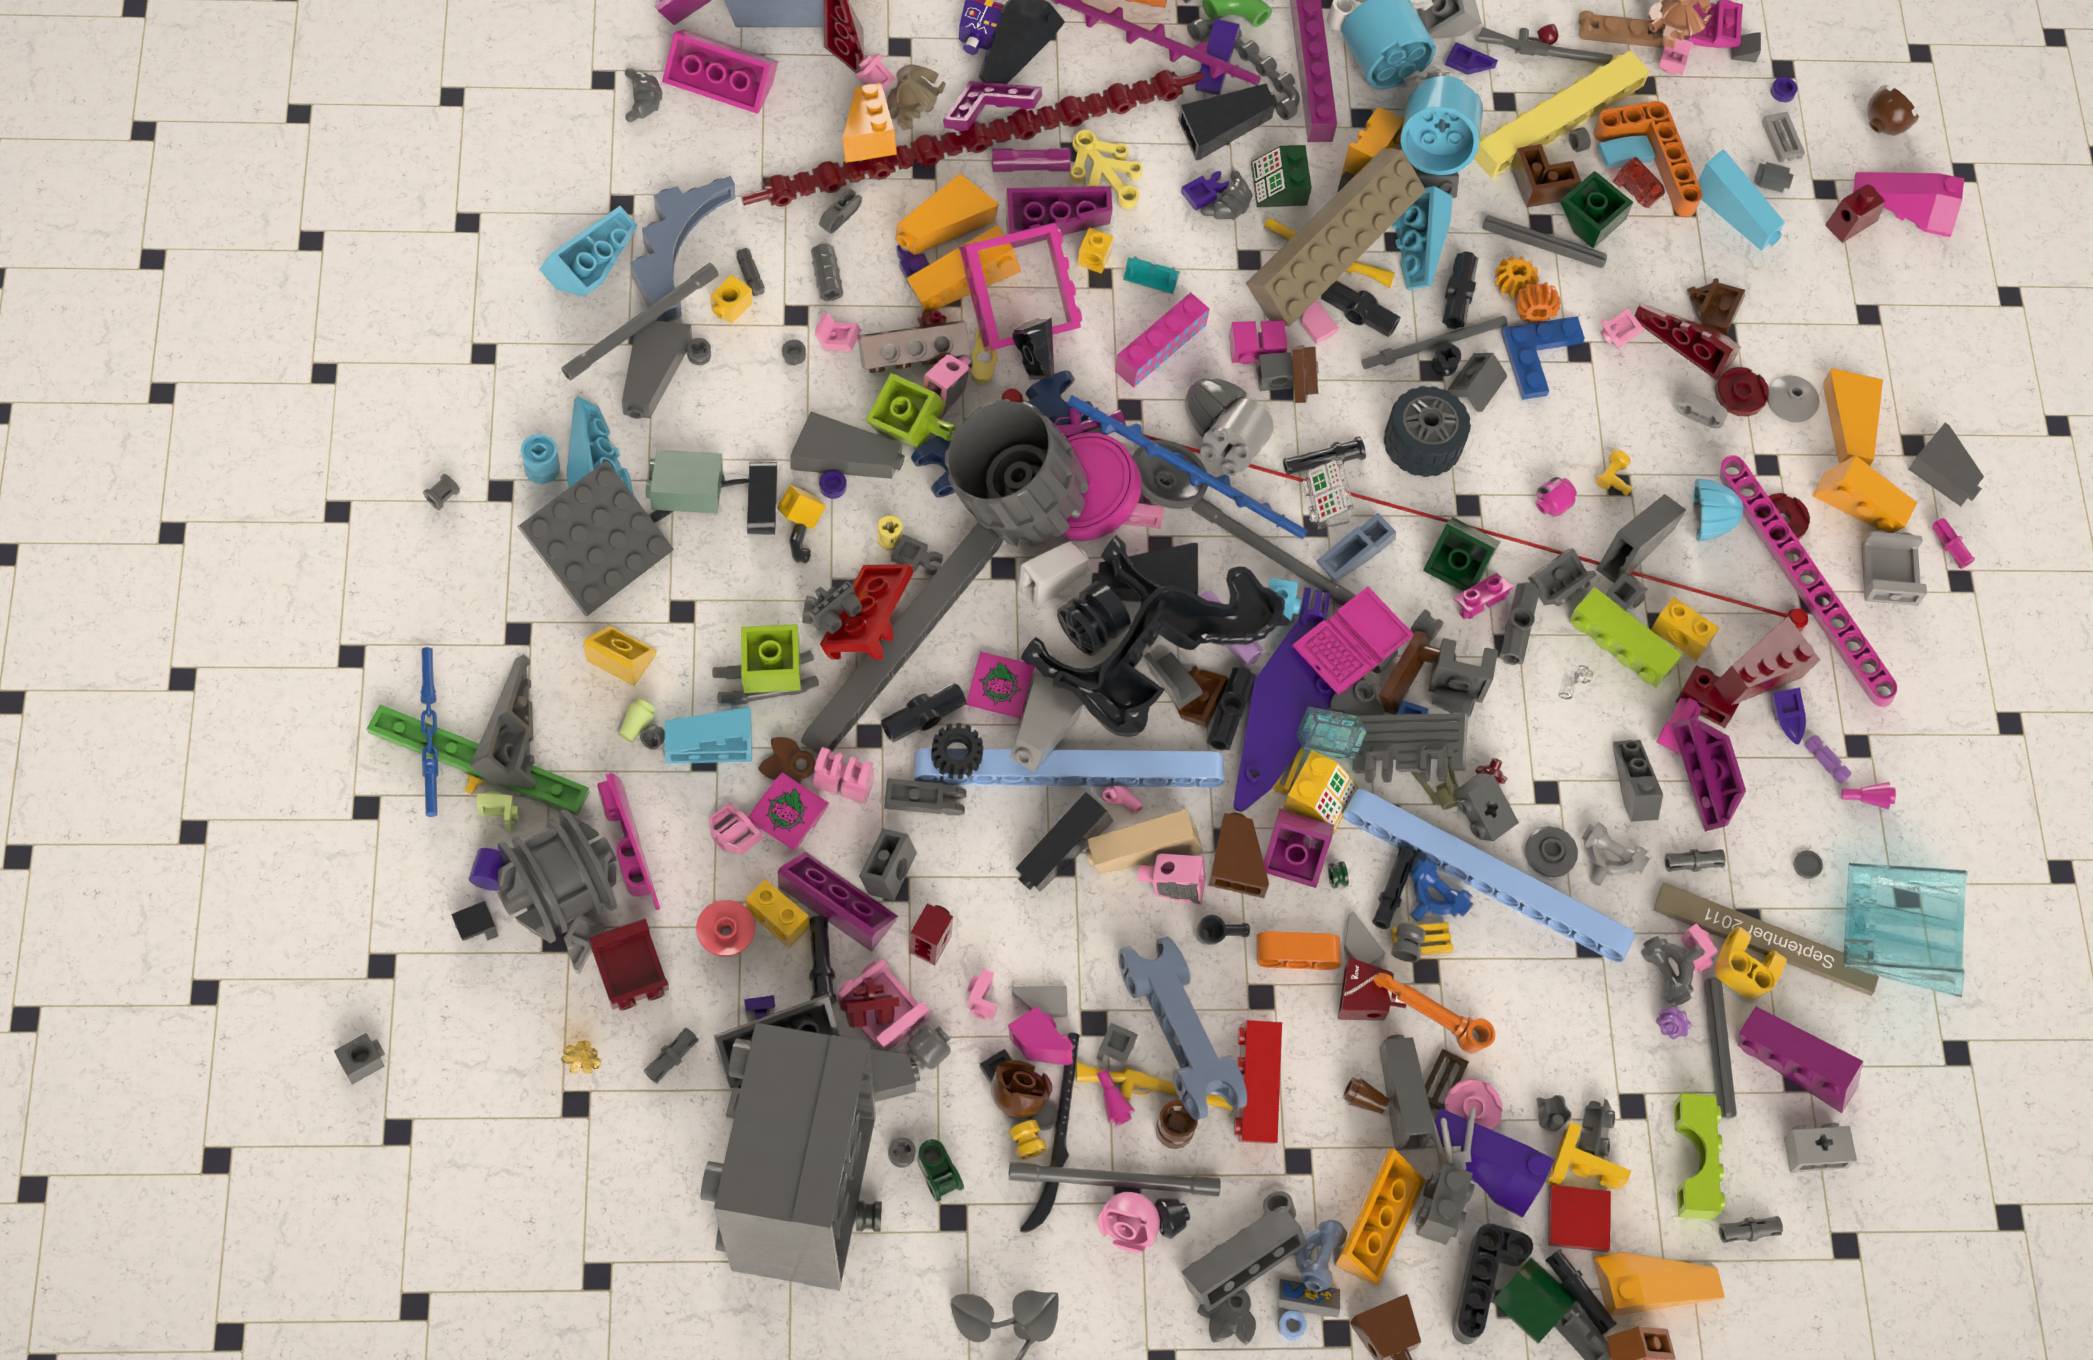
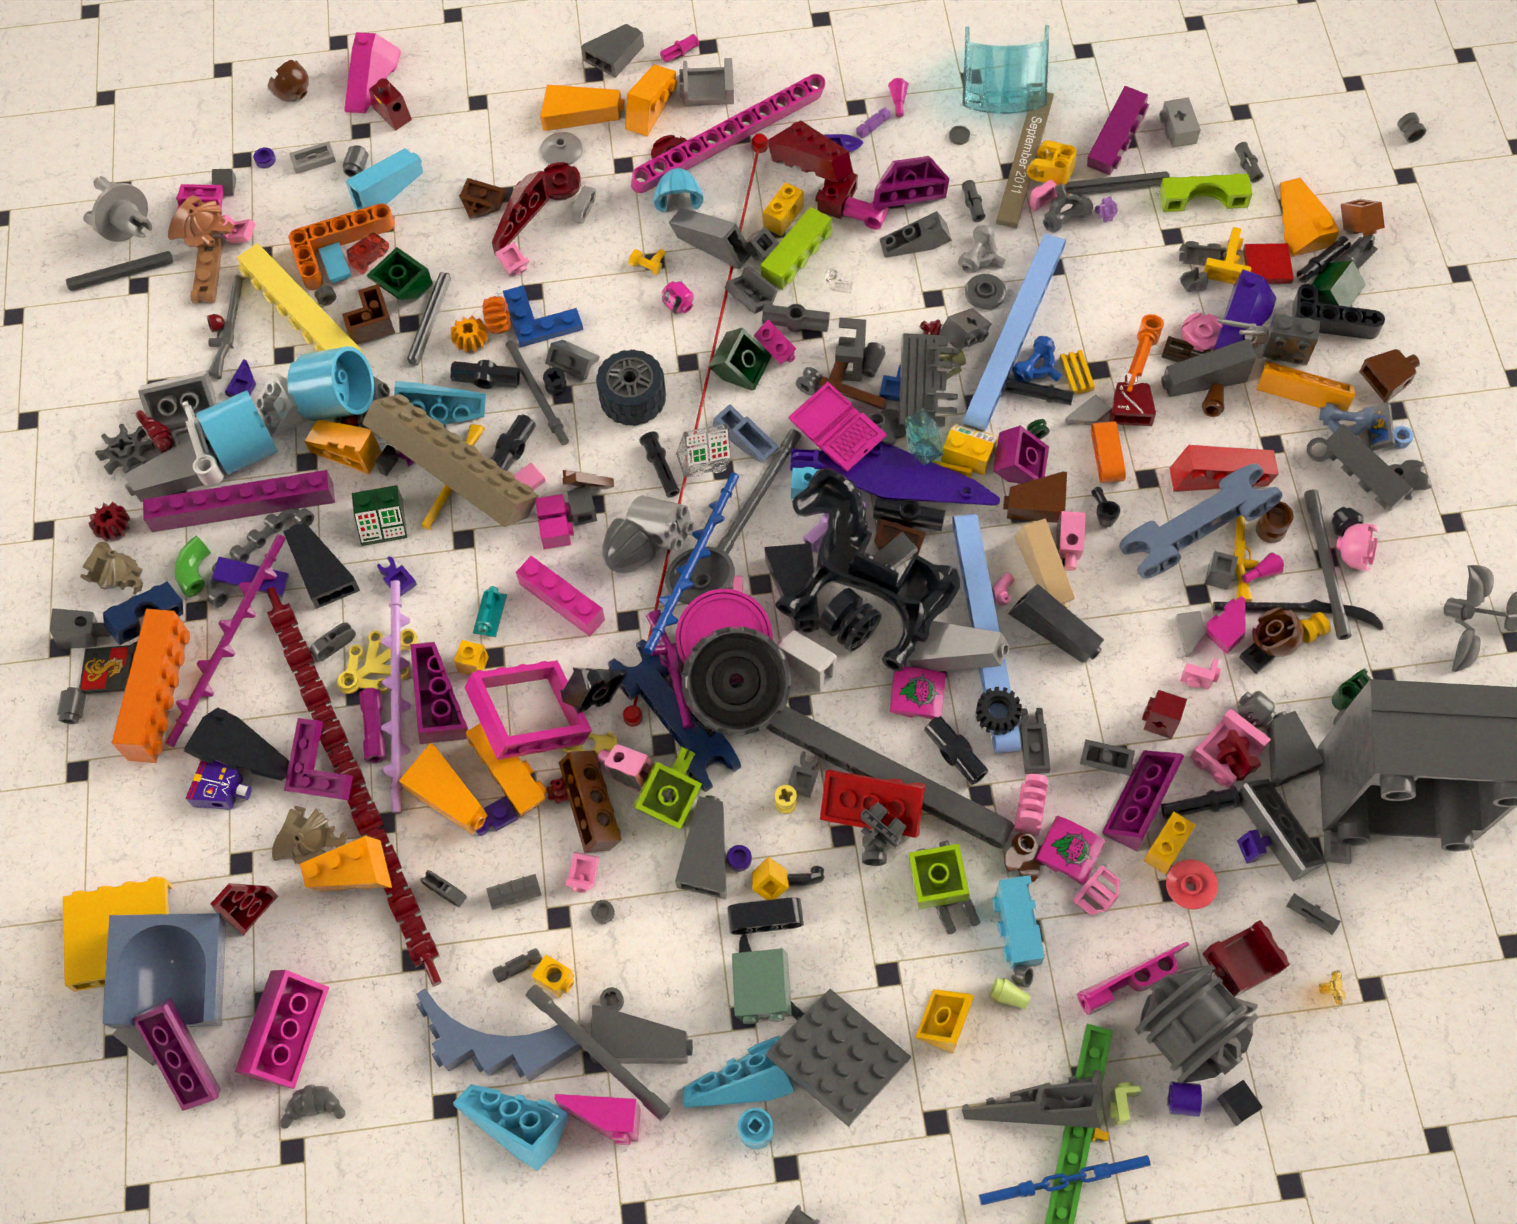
camera: 85 degrees left, 0 degrees up
(358, 1070) = (1401, 1183): dark grey brick -> none
(576, 322) = (610, 1116): none -> dark pink slope
(874, 72) = (282, 876): bright pink bracket -> none
(1072, 177) = (398, 705): none -> lavender plant
(1133, 128) = (332, 641): none -> dark grey piece
(1233, 200) = (404, 554): dark grey piece -> none
(1408, 942) = (1089, 374): dark grey wheel -> none

